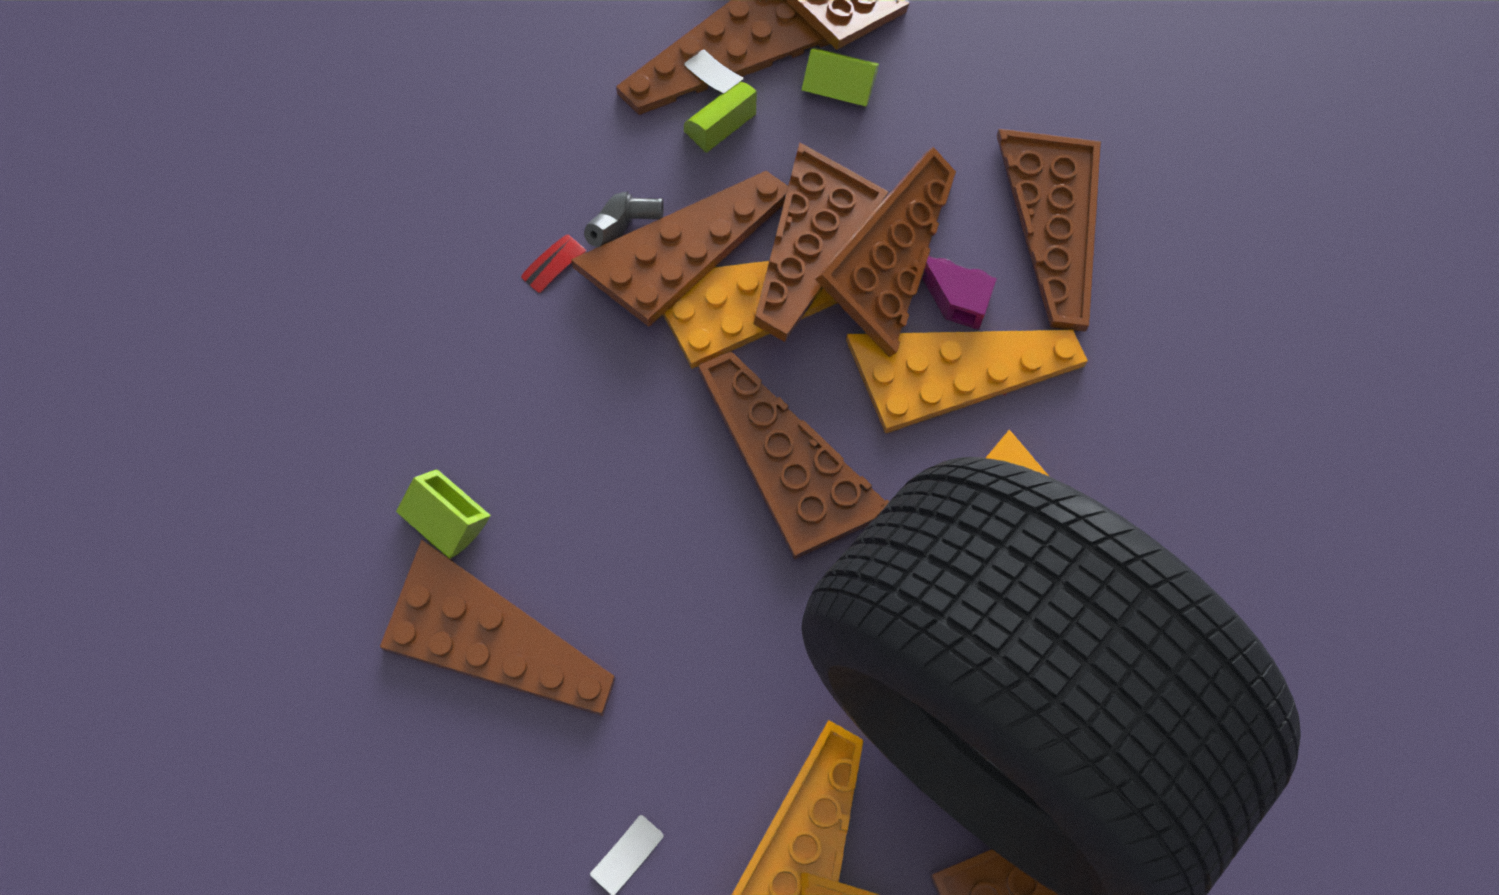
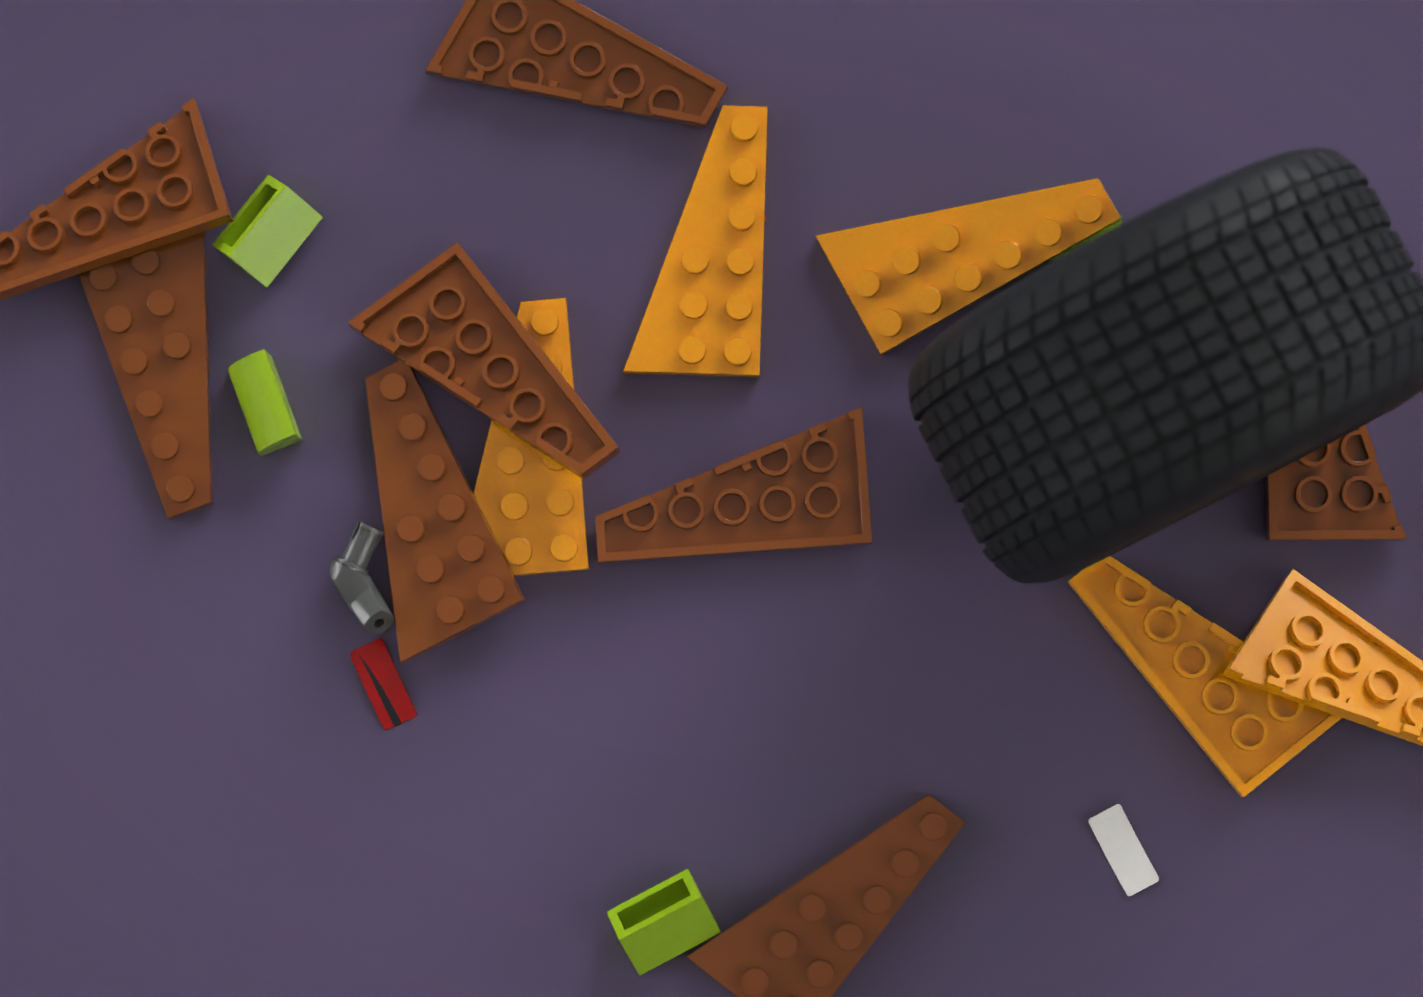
camera: 65 degrees left, 15 degrees up
(712, 72) = (202, 388): white sticker -> none
(887, 255) = (546, 279): dark orange wing -> none
(959, 291) = (624, 217): magenta slope -> none

